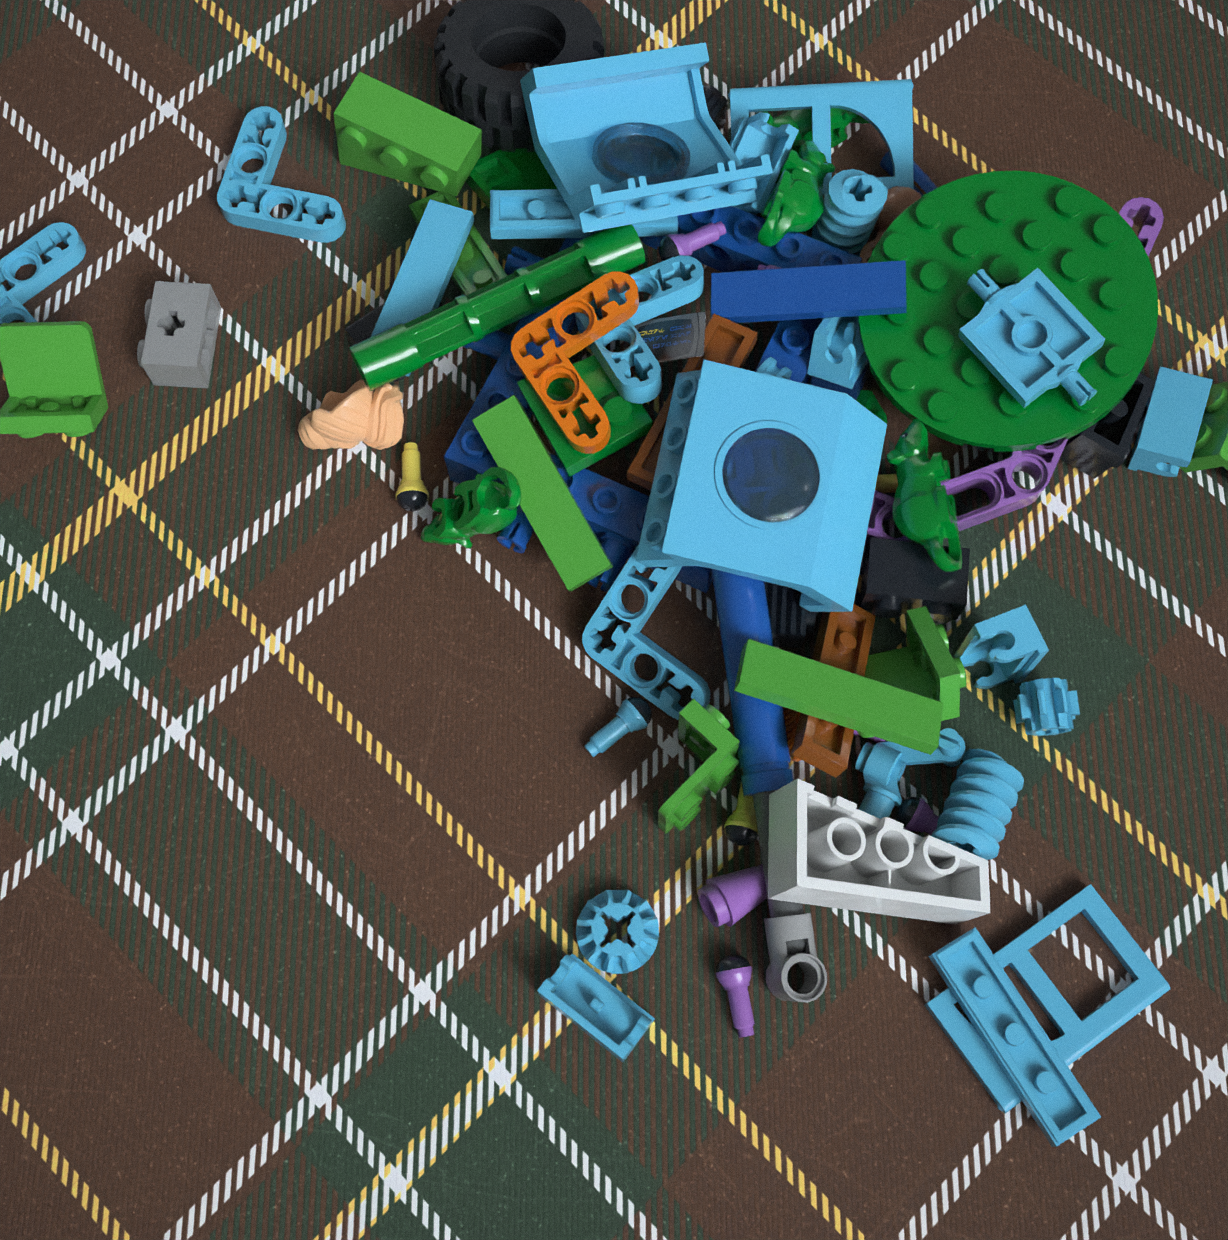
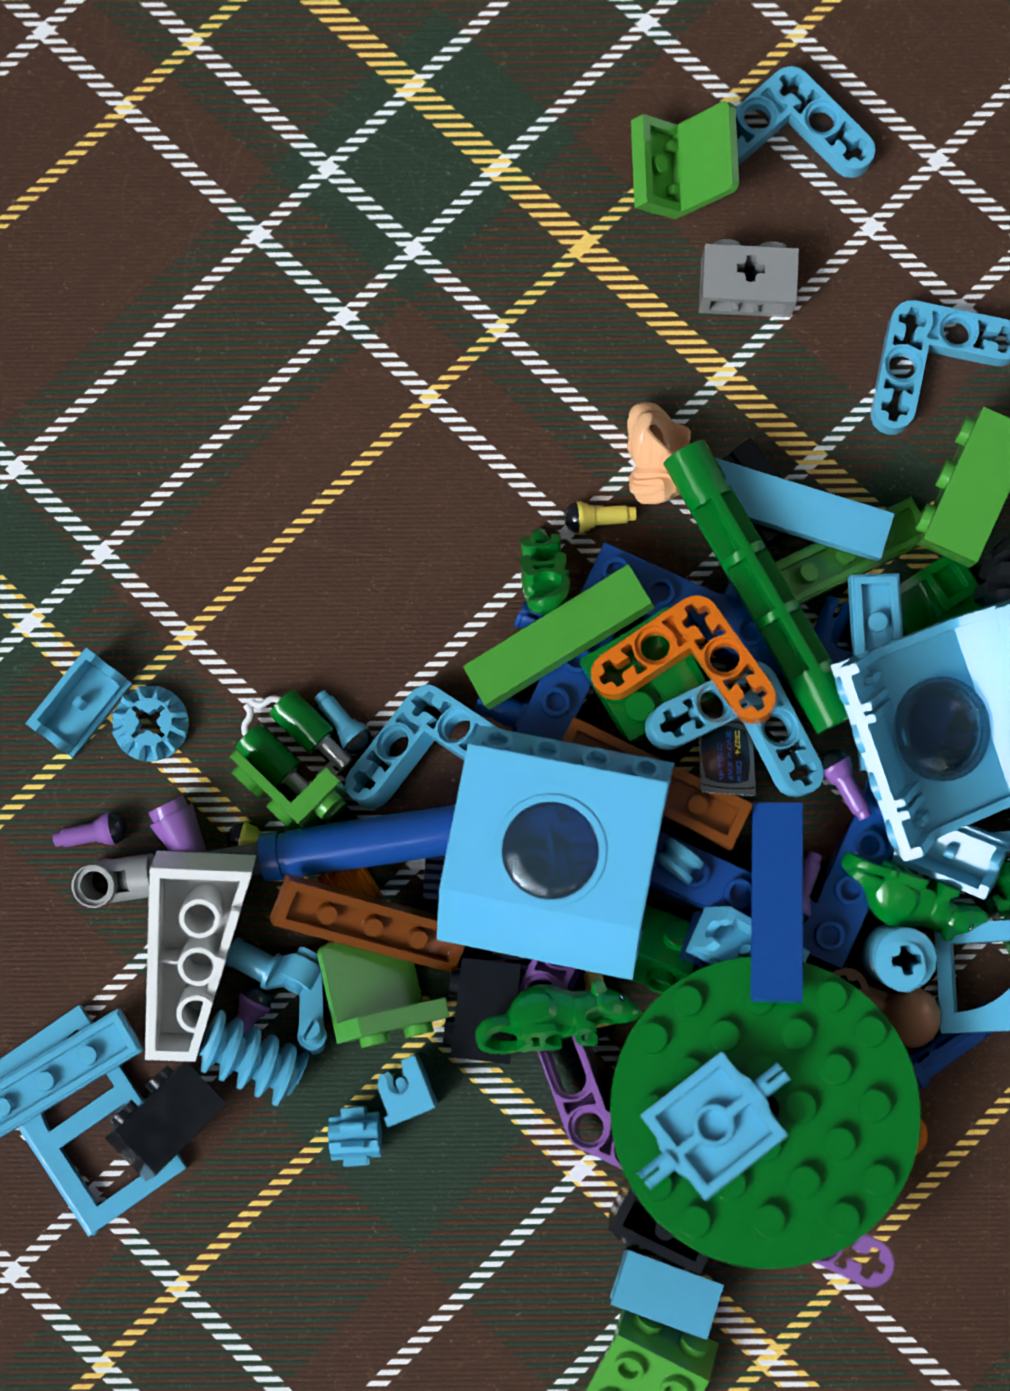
camera: 90 degrees right, 10 degrees up
(623, 763) = (303, 725): none -> green piece
(839, 696) = (342, 920): bright green tile -> none
(1050, 896) = (165, 1120): none -> black brick

